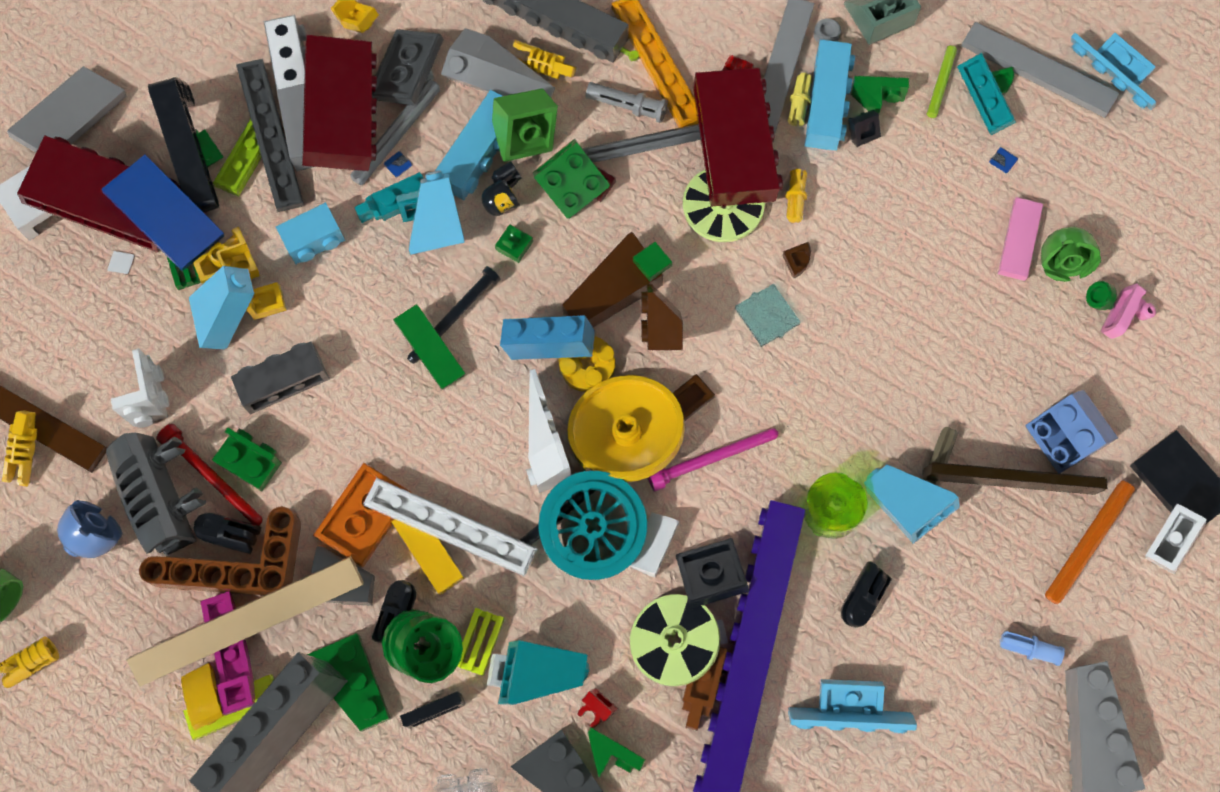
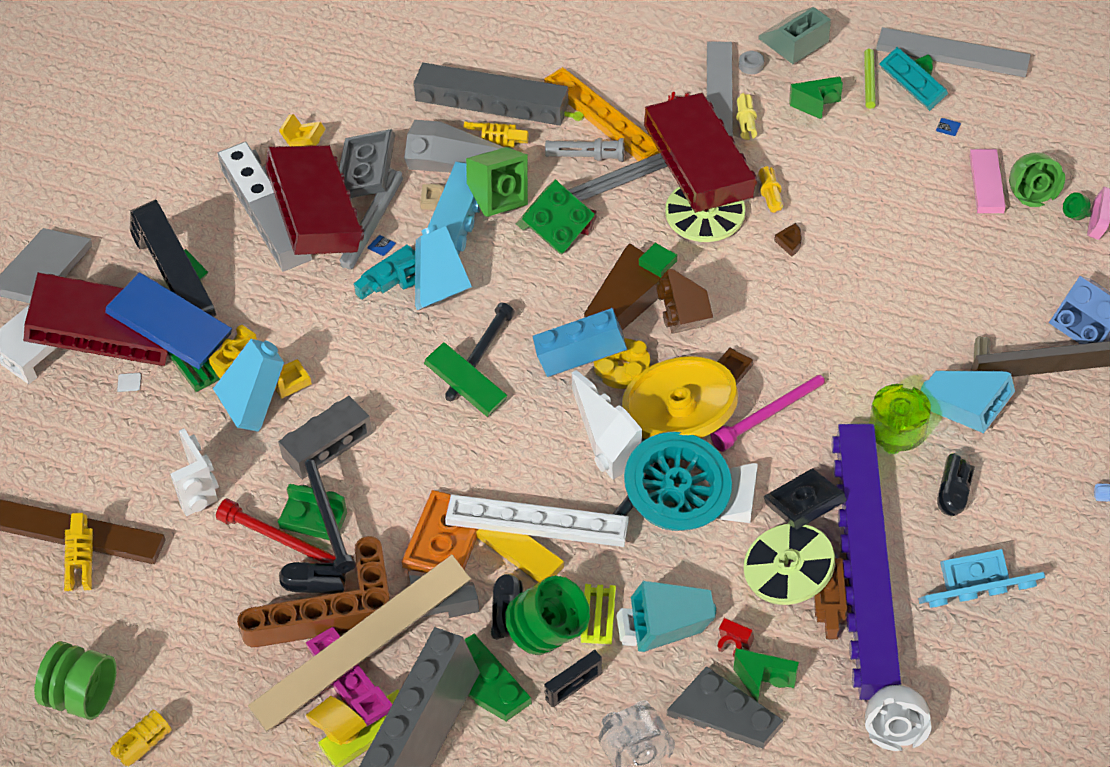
camera: 15 degrees left, 20 degrees down
(86, 531) = (170, 608): medium blue cylinder -> none
(149, 493) = (223, 561): dark grey piece -> none
(240, 163) = (229, 269): lime tile -> none
(251, 476) = (343, 562): none -> black bar
(270, 135) = (250, 244): dark grey tile -> none
(310, 234) = (316, 314): medium azure brick -> none
(459, 118) = (430, 196): none -> tan tile
(499, 196) = (493, 243): black piece -> none
(514, 243) = (517, 282): green tile -> none
(767, 315) = (778, 289): clear light blue piece -> none
(829, 94) = (772, 107): medium azure brick -> none
(864, 127) = (813, 124): black tile -> none
(1122, 63) = (1023, 31): medium azure bracket -> none

